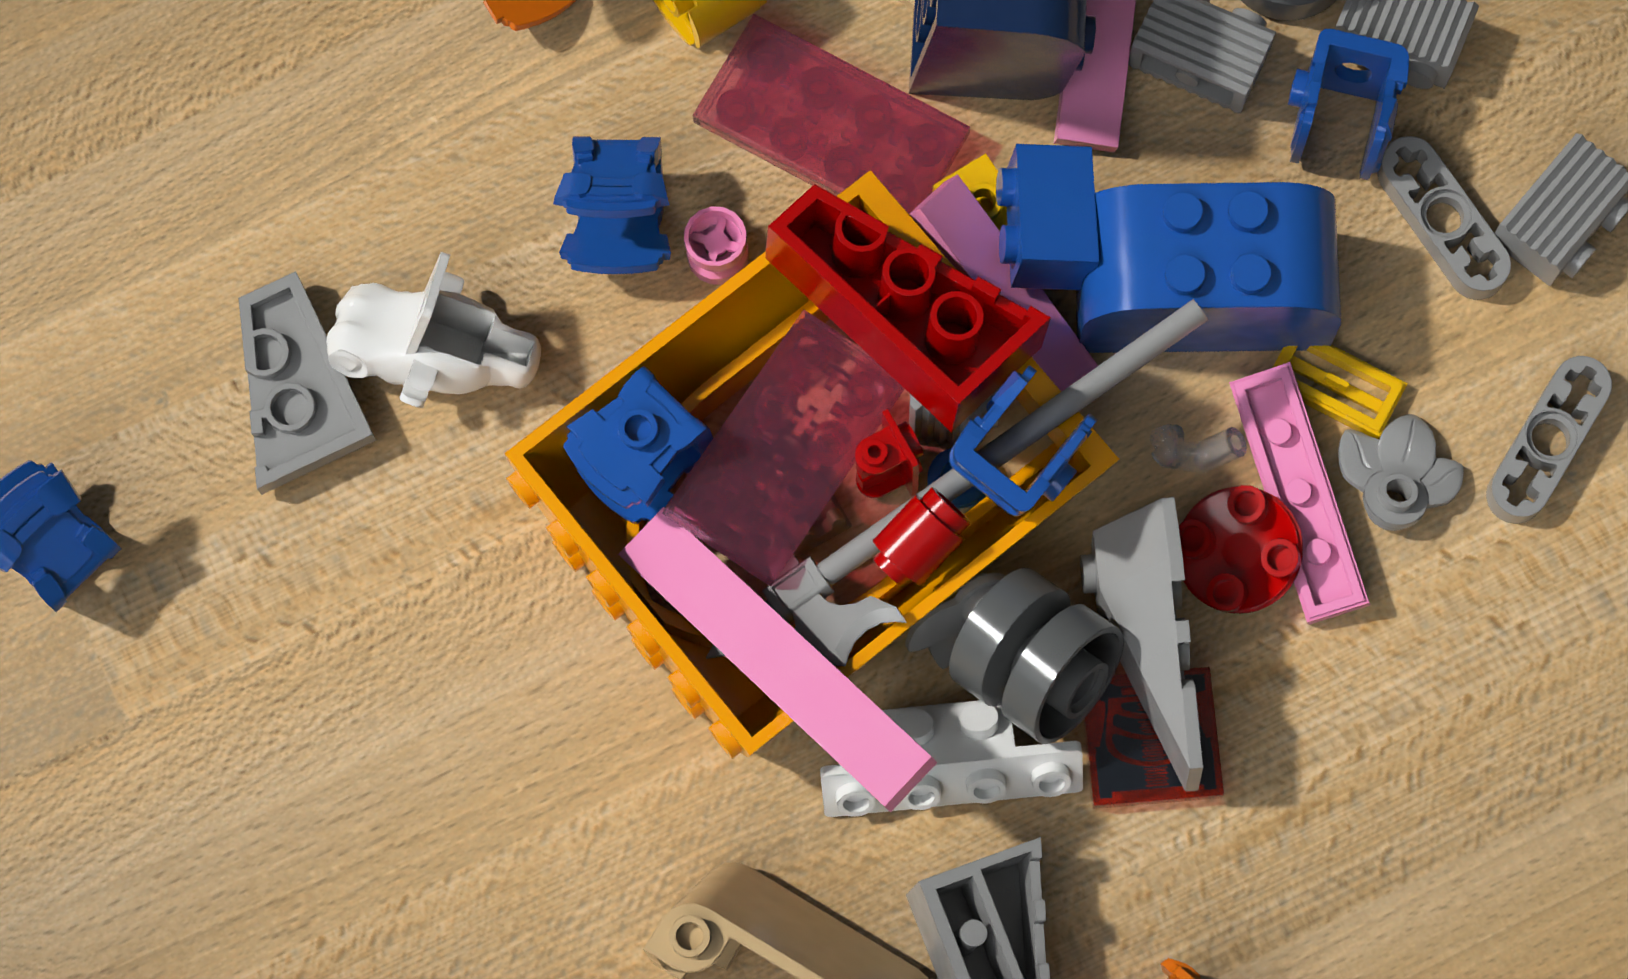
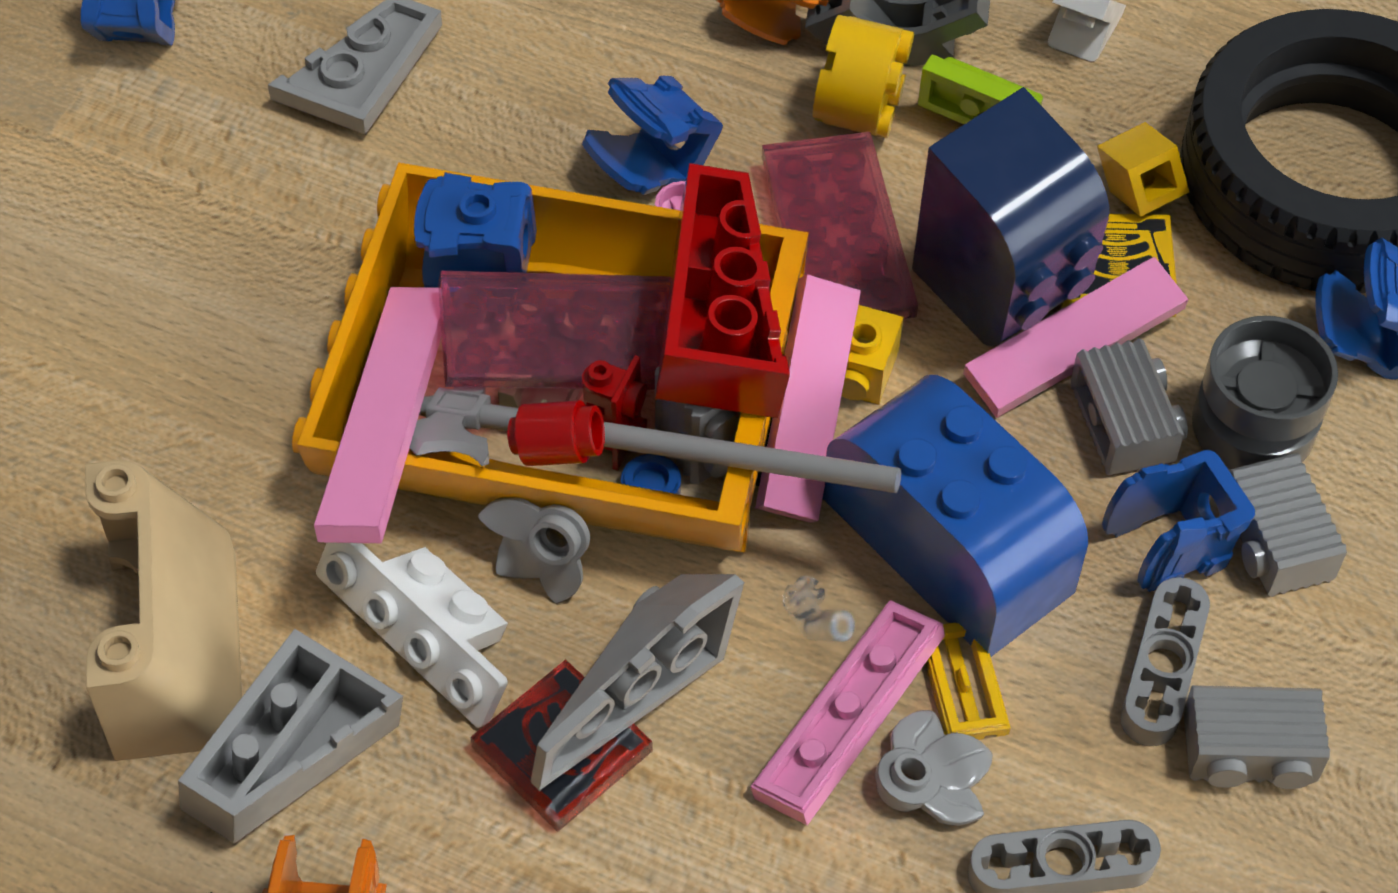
camera: 45 degrees right, 20 degrees down
(429, 340) = (459, 101): white piece -> none
(993, 482) = (697, 395): blue piece -> none
(1036, 655) = (545, 595): dark grey wheel -> none
(1049, 216) = (884, 362): blue brick -> none
(1240, 549) = (764, 697): red dish -> none

